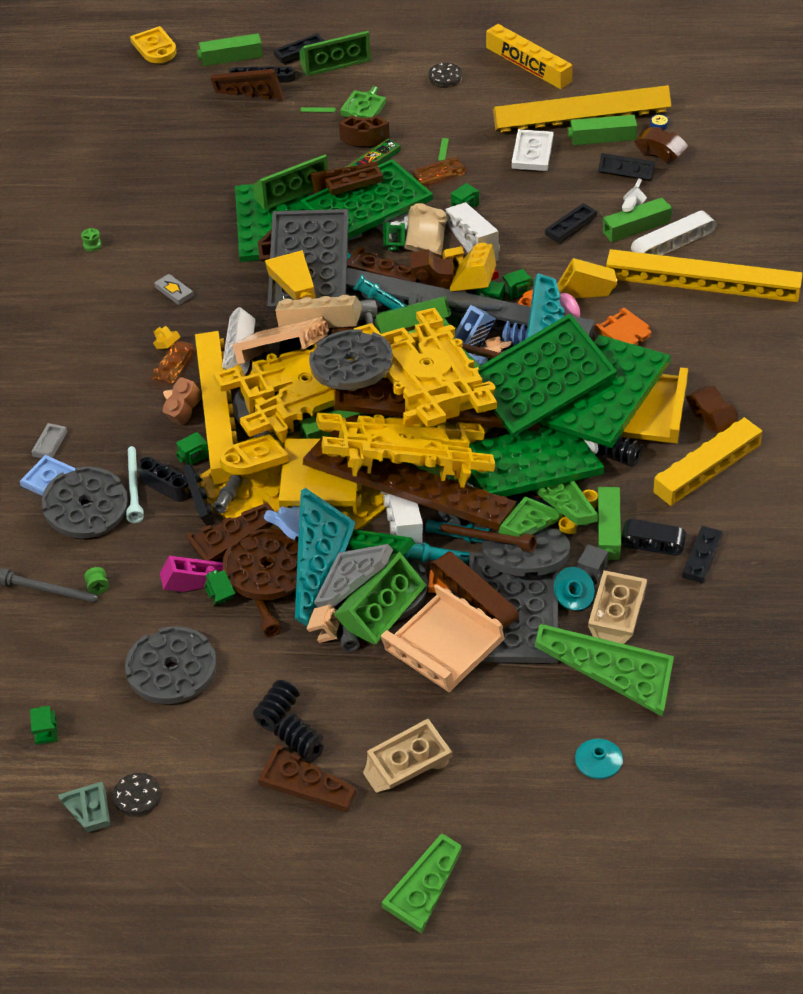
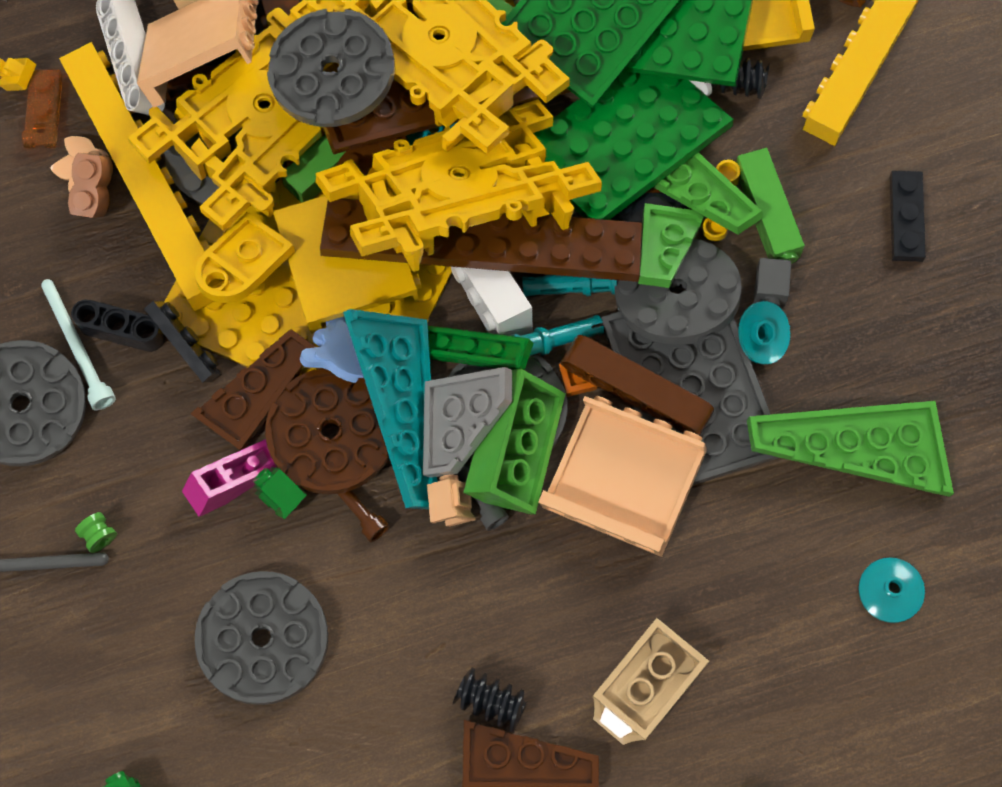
camera: 20 degrees left, 25 degrees up
(192, 449) = (138, 261): green window -> none
(227, 494) = (223, 329): dark grey pin -> none
(275, 704) = (436, 659): black piece -> none
(526, 542) = (683, 291): reddish brown piece -> none
(617, 606) = (833, 347): tan slope -> none
(653, 537) = (836, 210): black beam -> none

